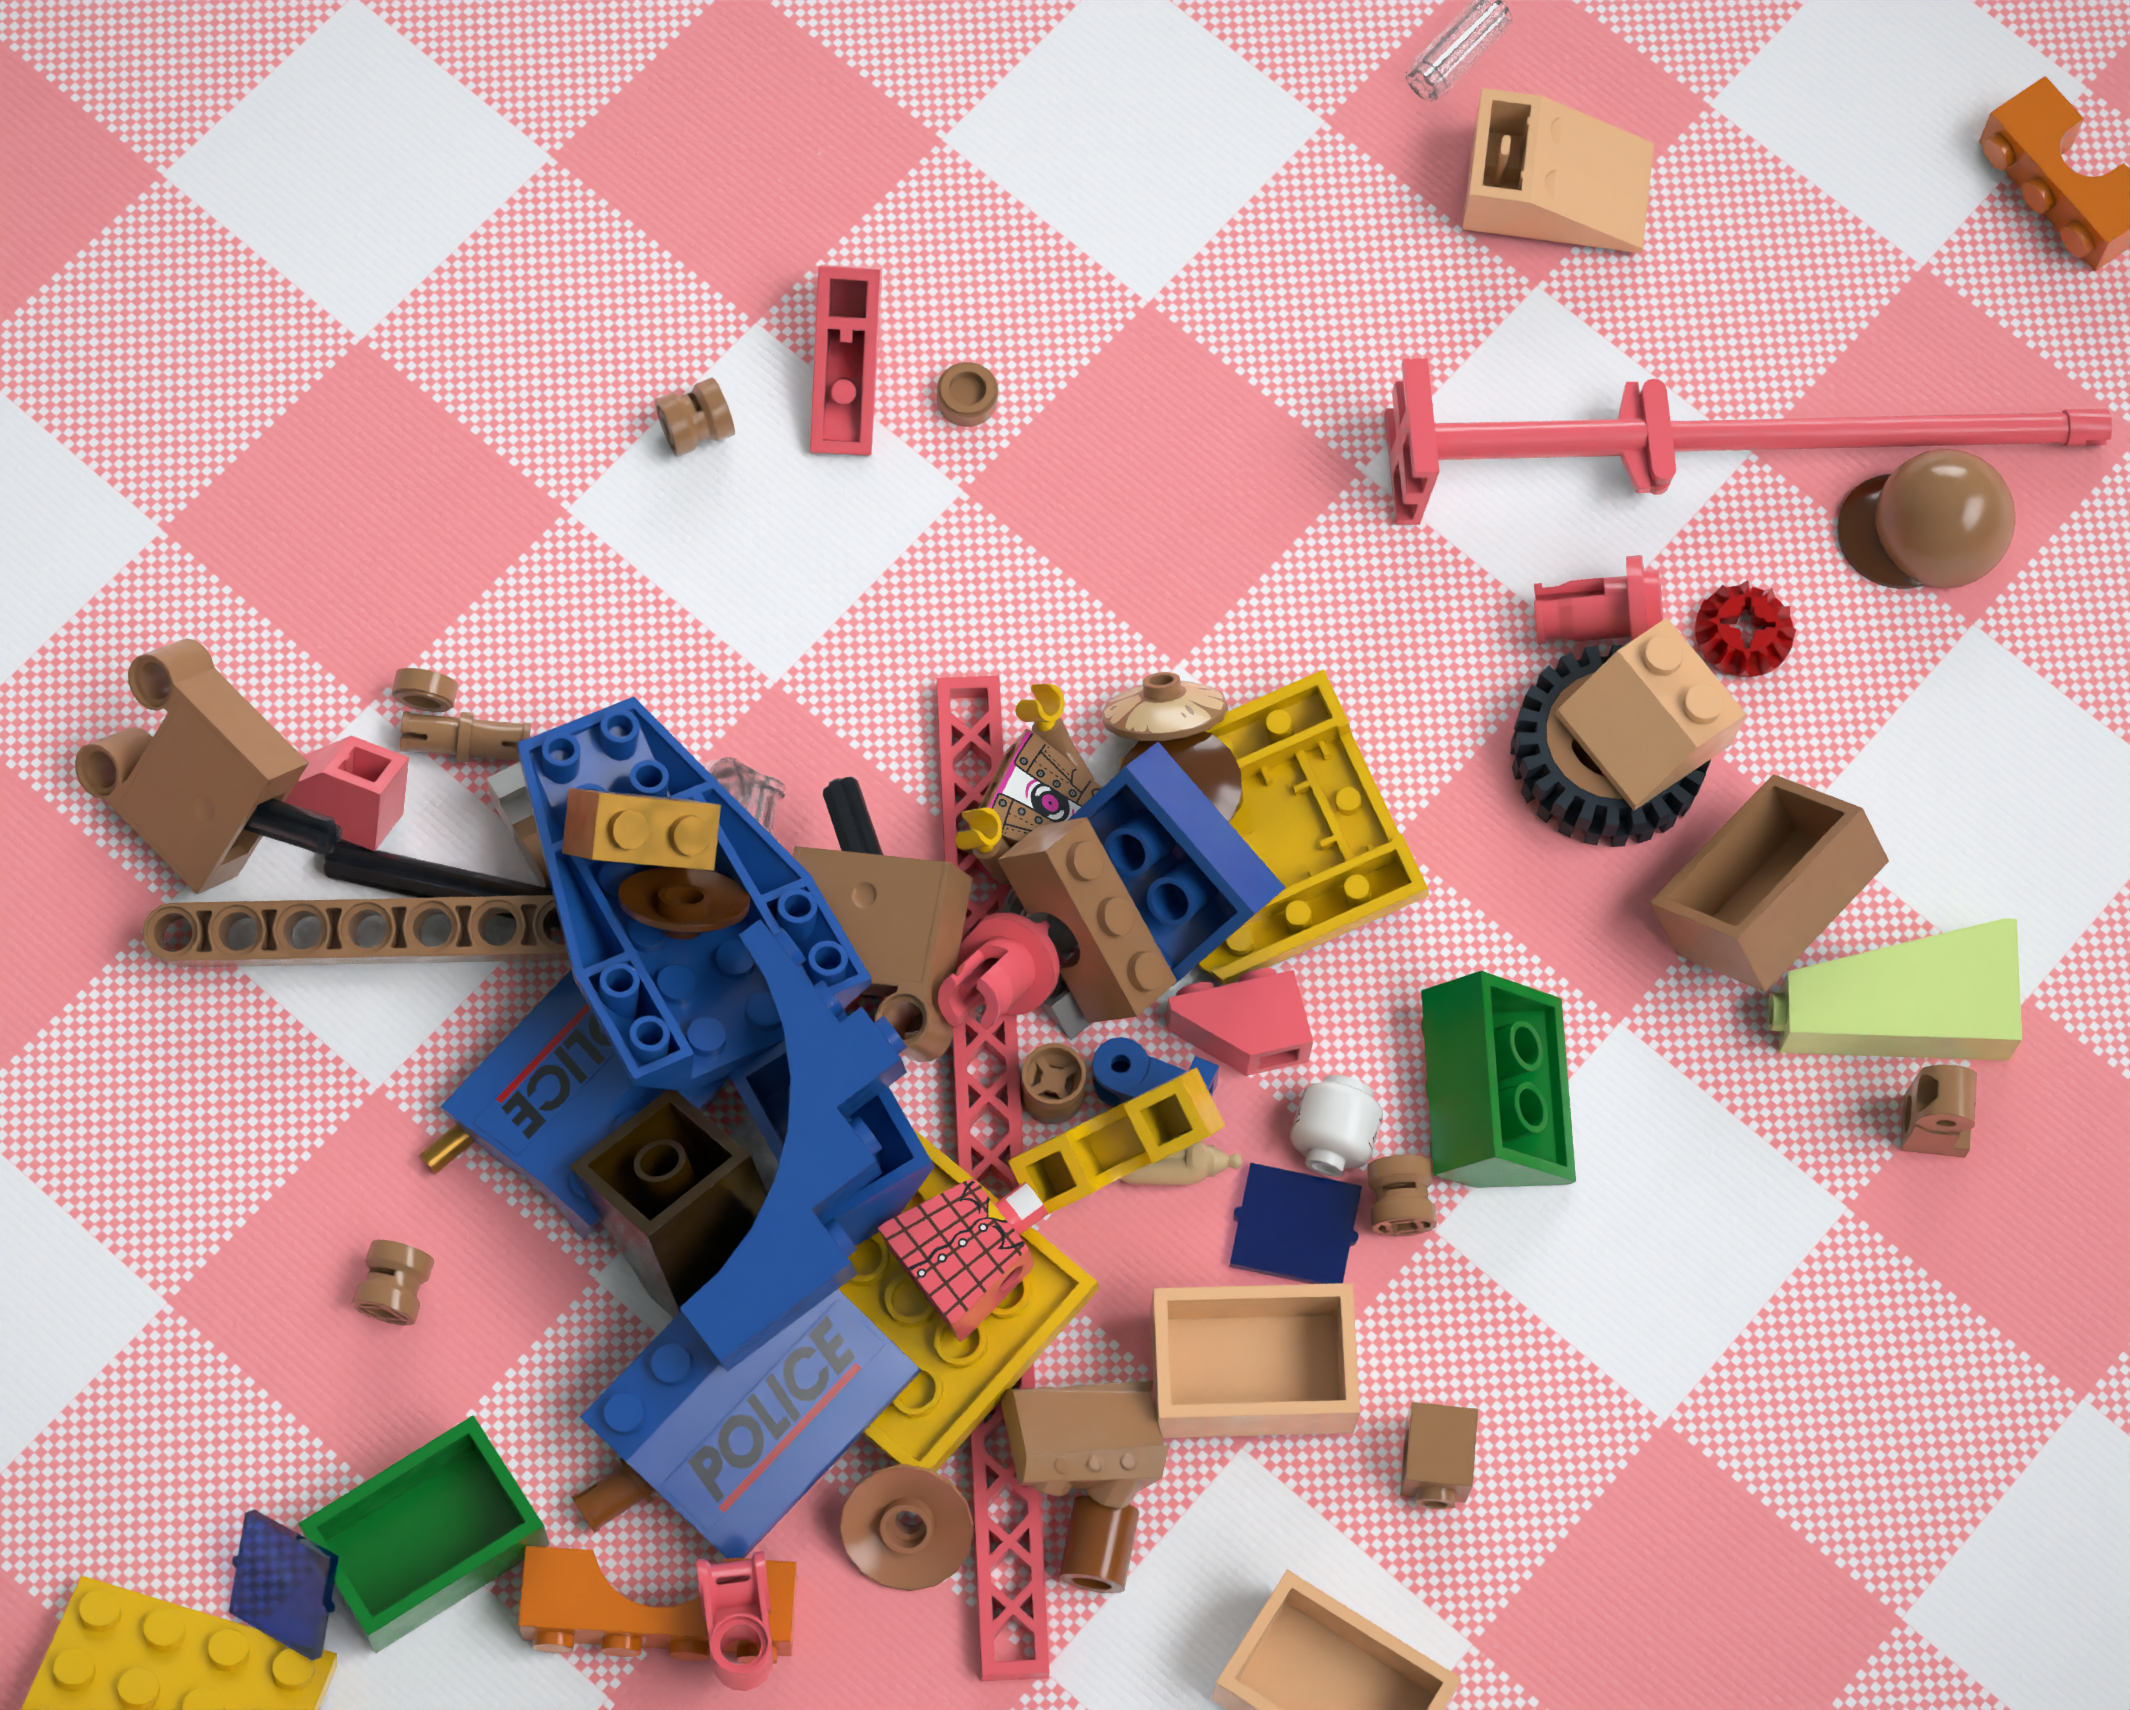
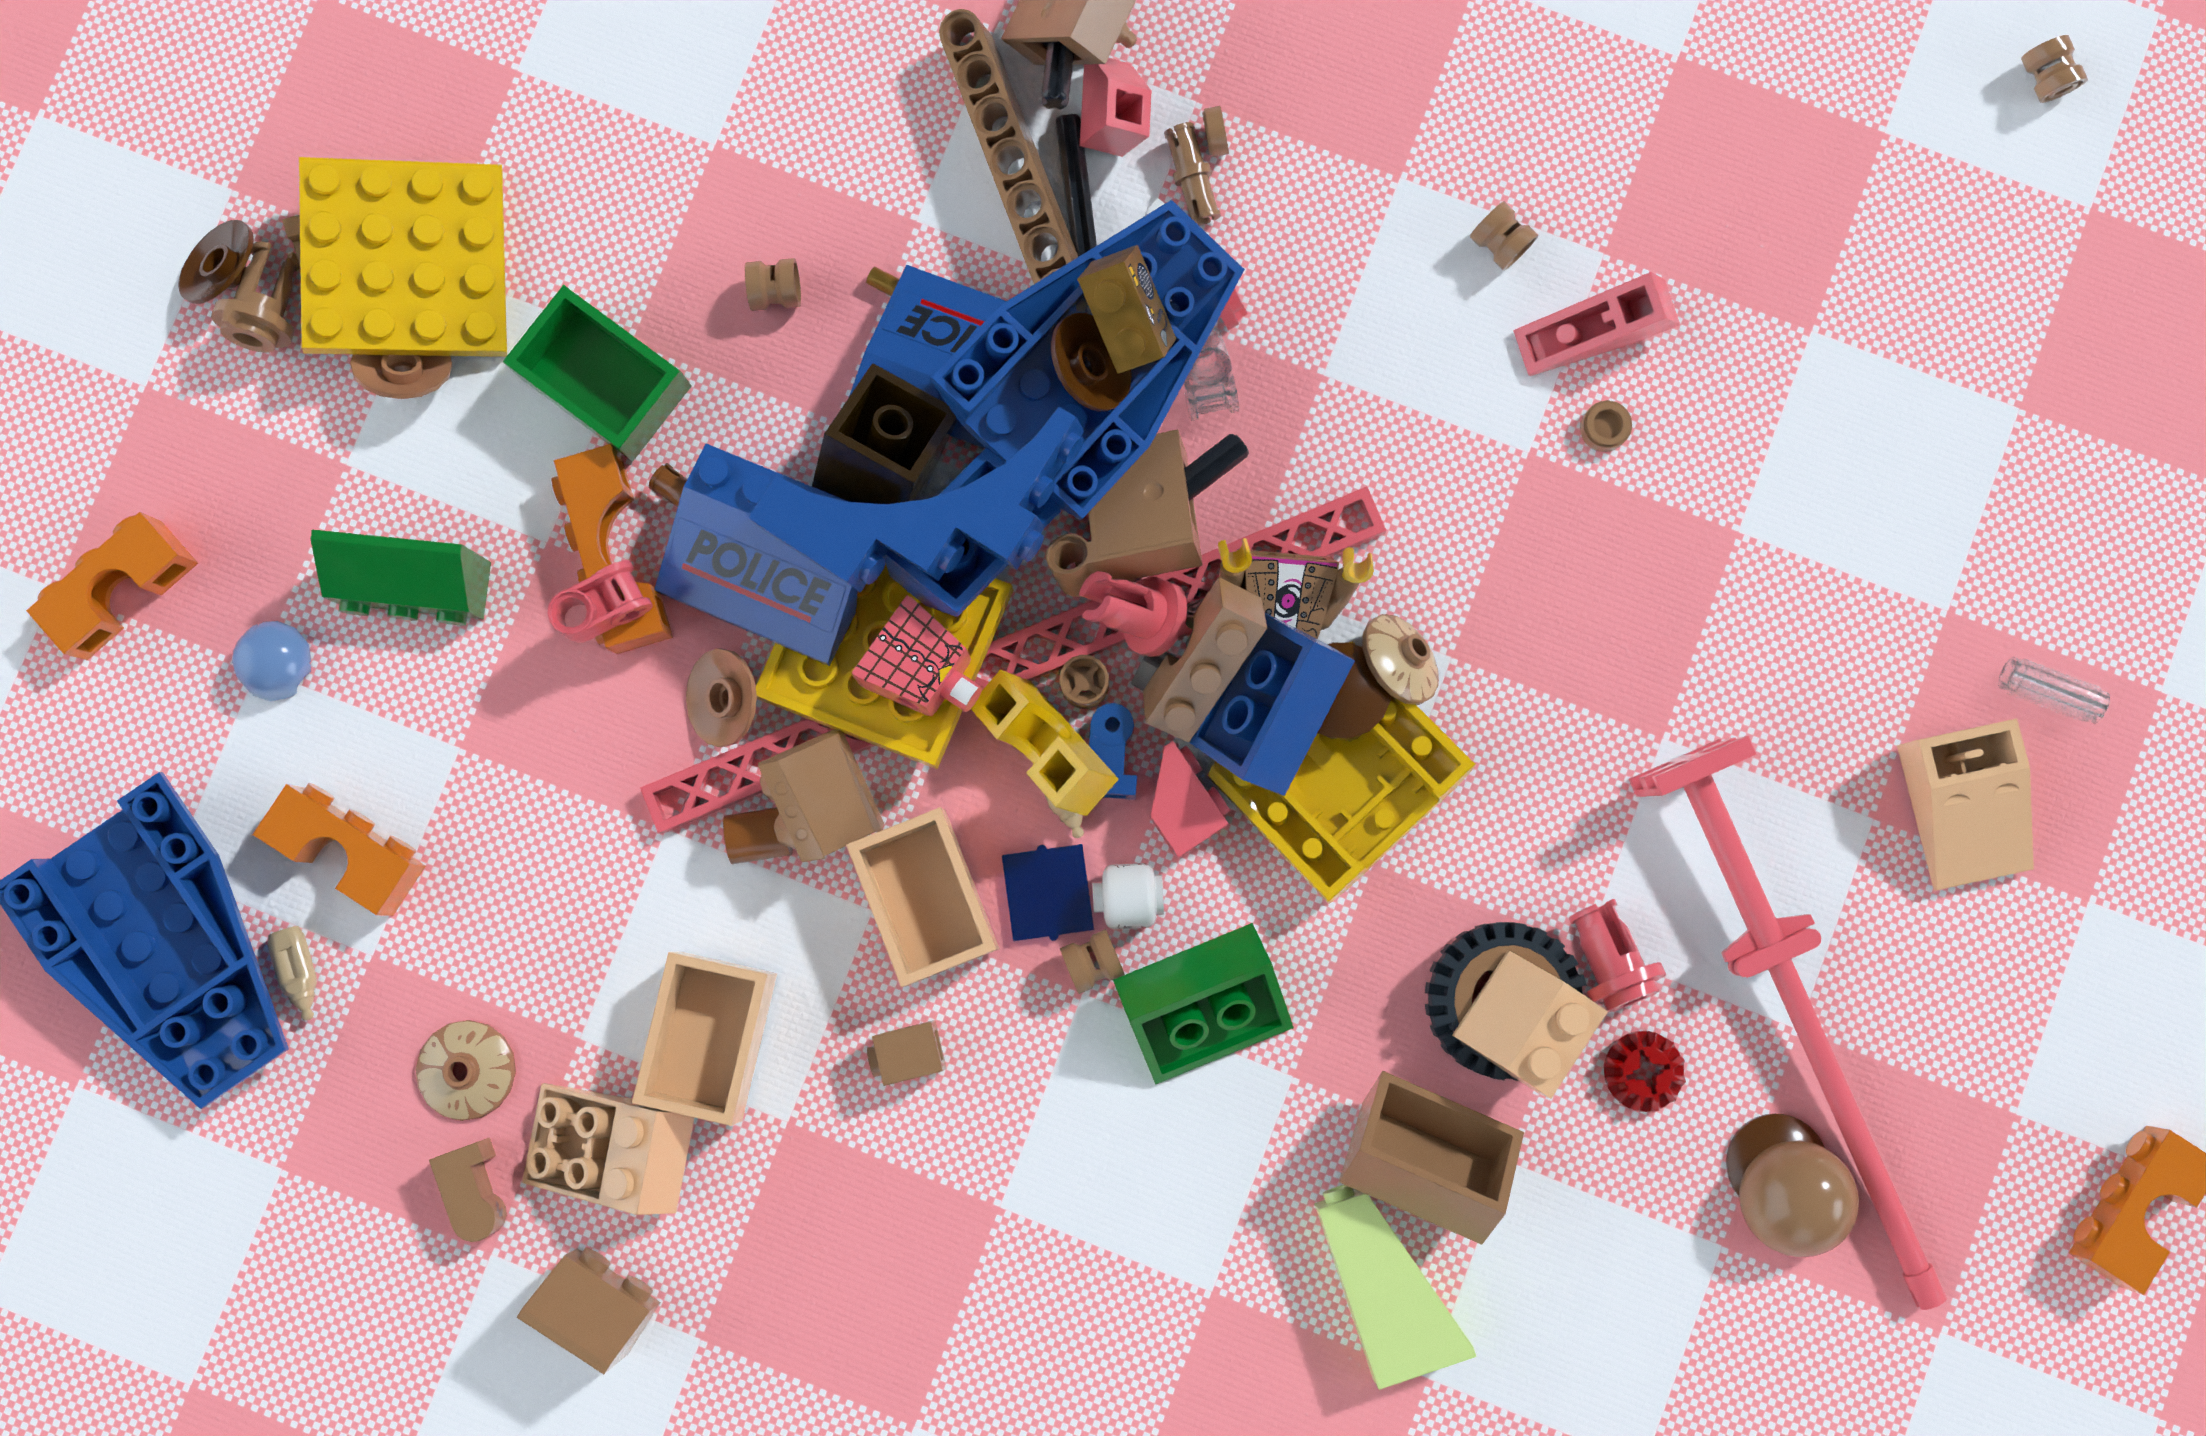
camera: 80 degrees right, 15 degrees up
(283, 1584) = (529, 294): clear blue piece -> none
(1940, 1111) = (1300, 1341): medium nougat leg -> none

